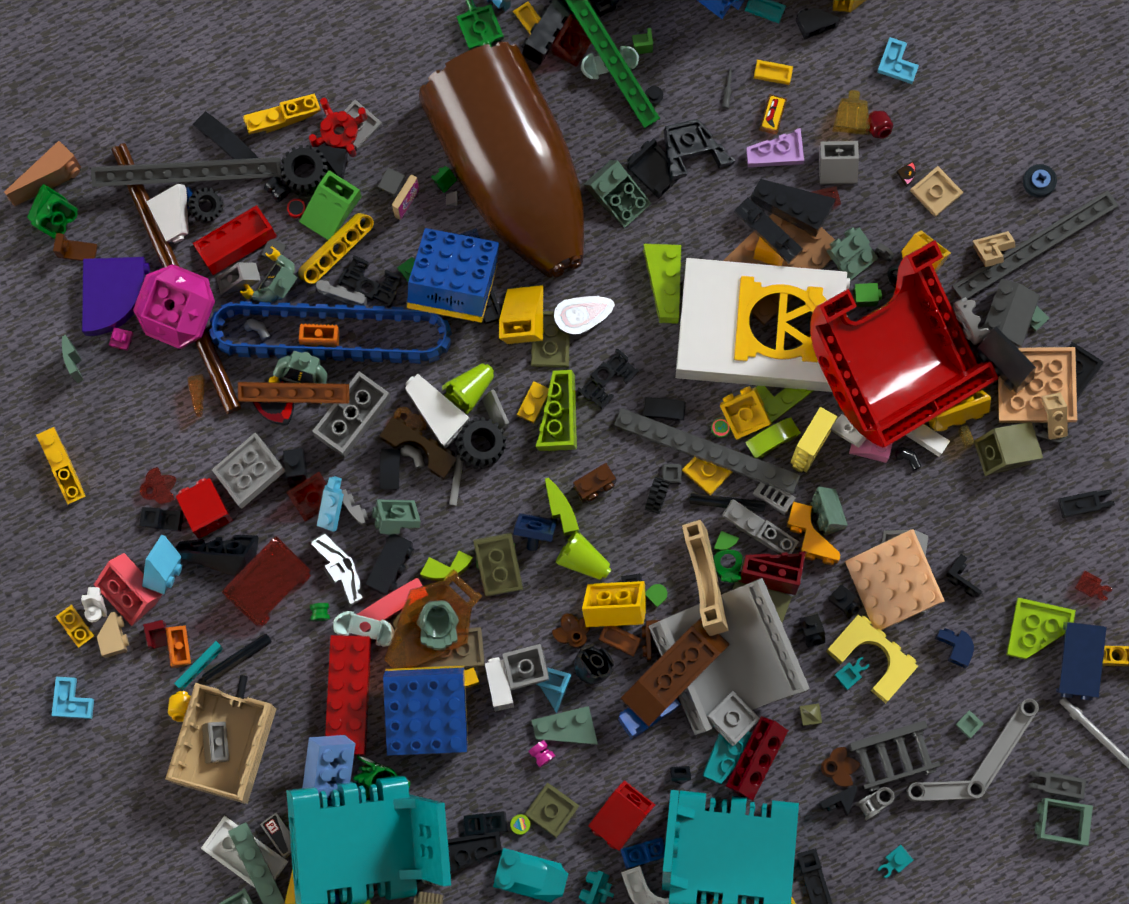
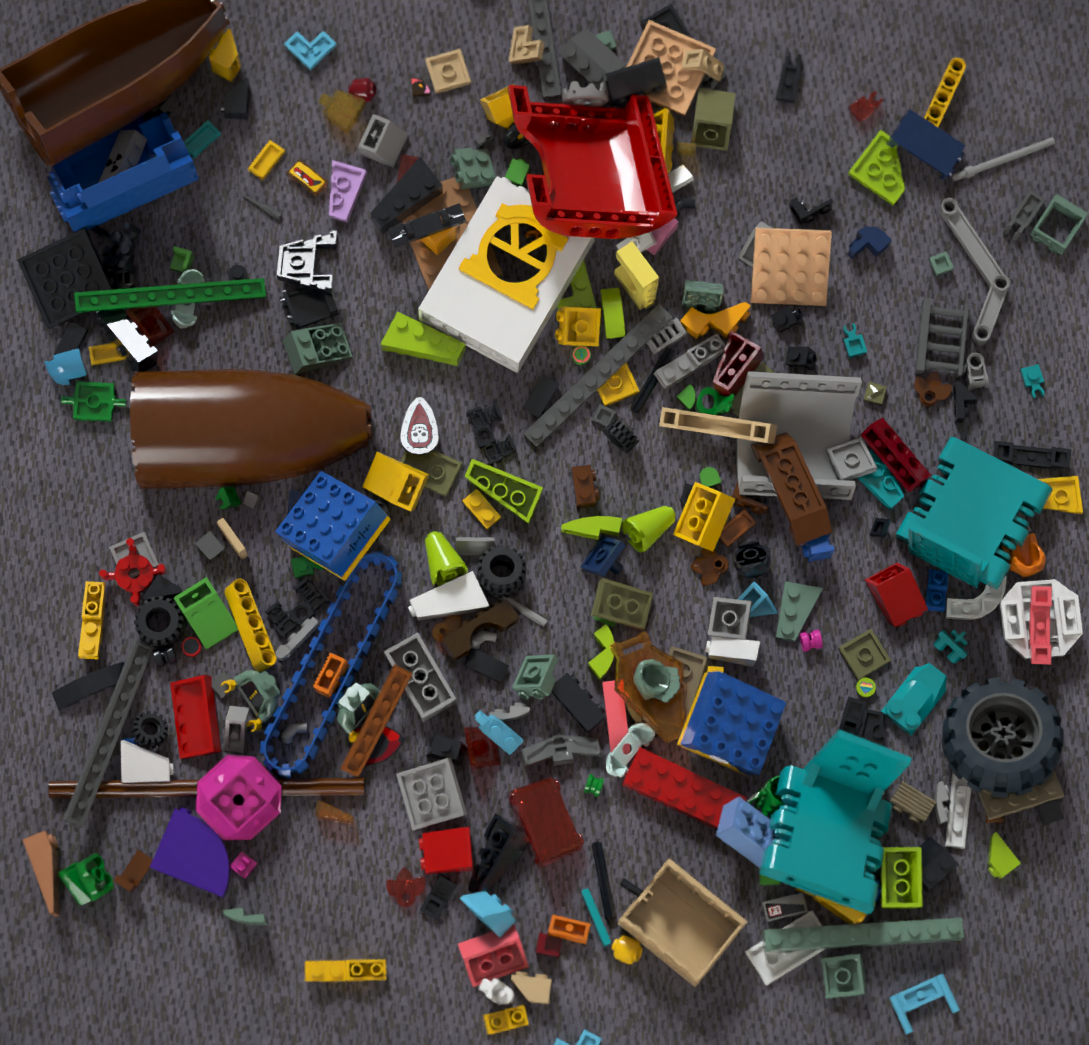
camera: 70 degrees left, 0 degrees up
(215, 742) = (674, 931): light grey slope -> none
(899, 665) = (865, 298): light yellow arch -> none

